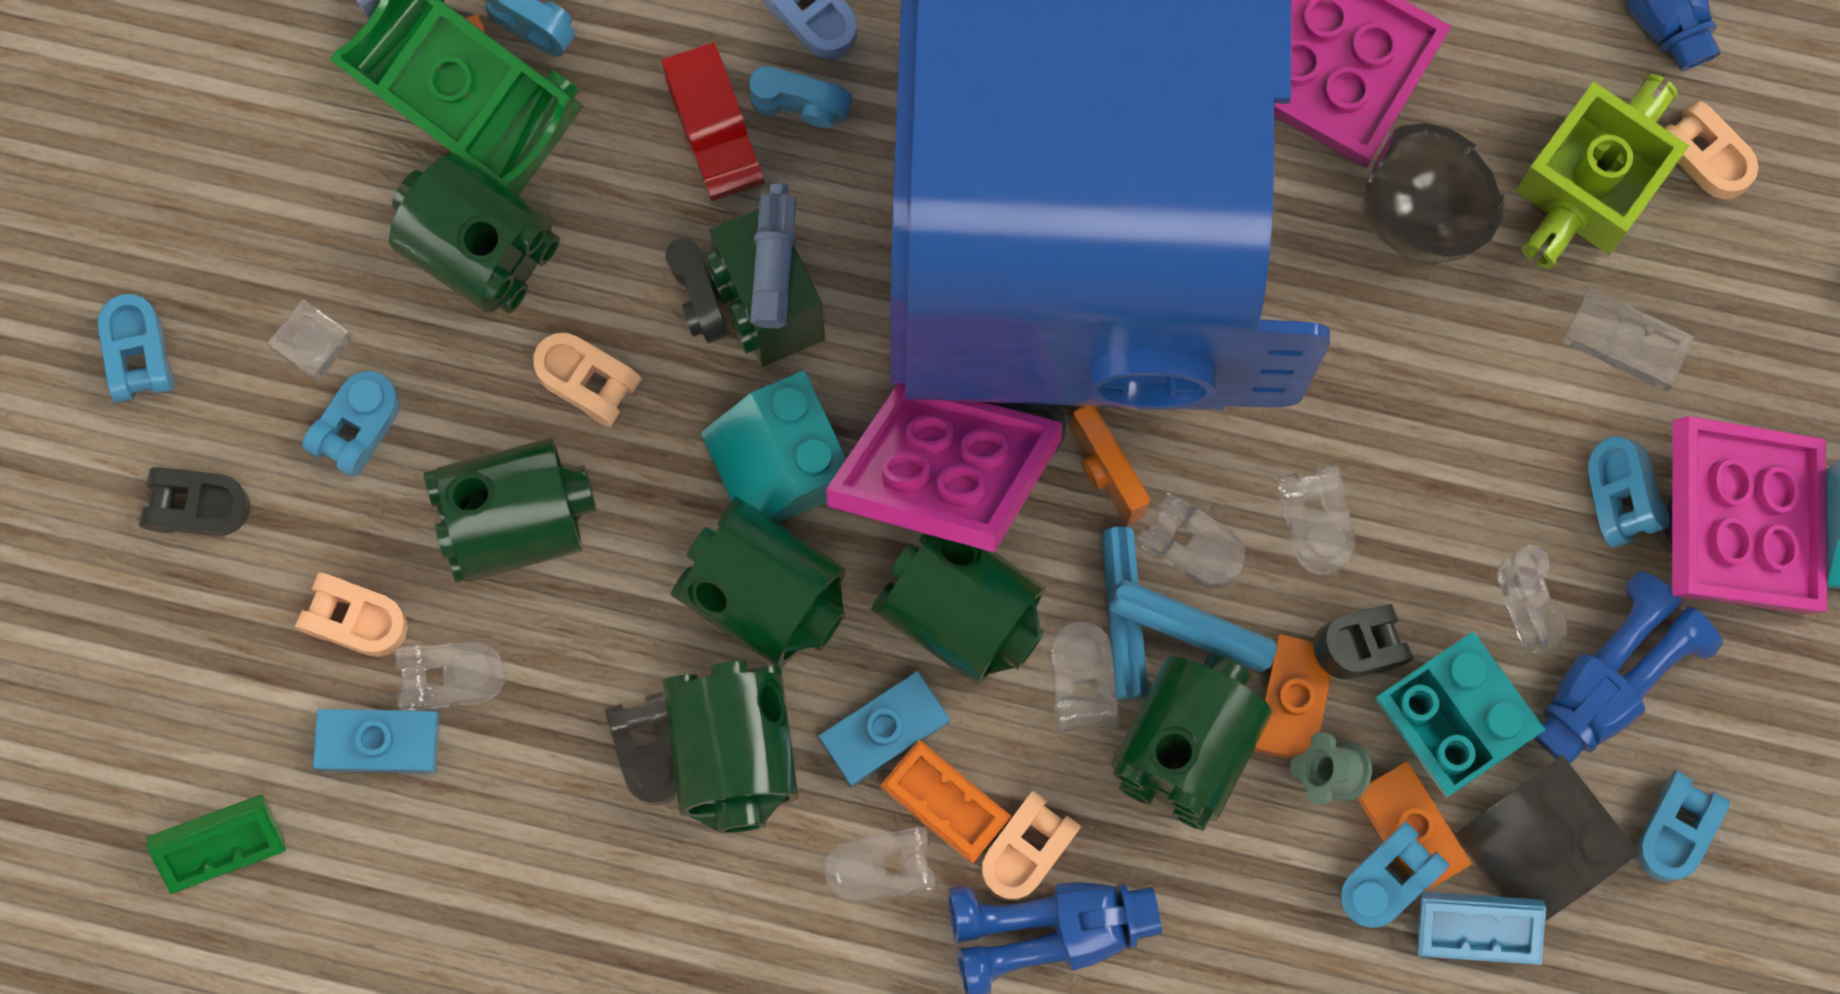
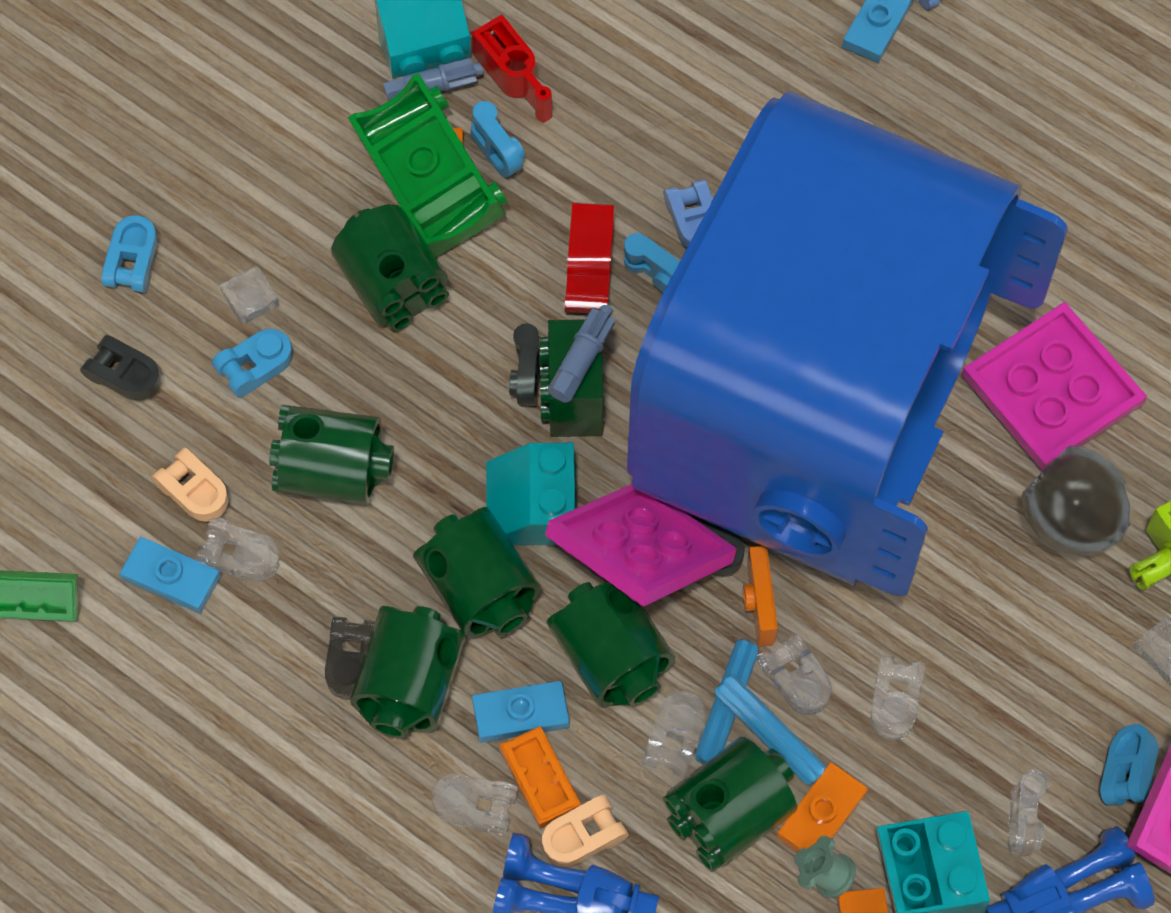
camera: 25 degrees right, 10 degrees down
(565, 367) = (415, 379): light nougat plate -> none
(1361, 644) = (875, 789): pearl dark grey plate -> none

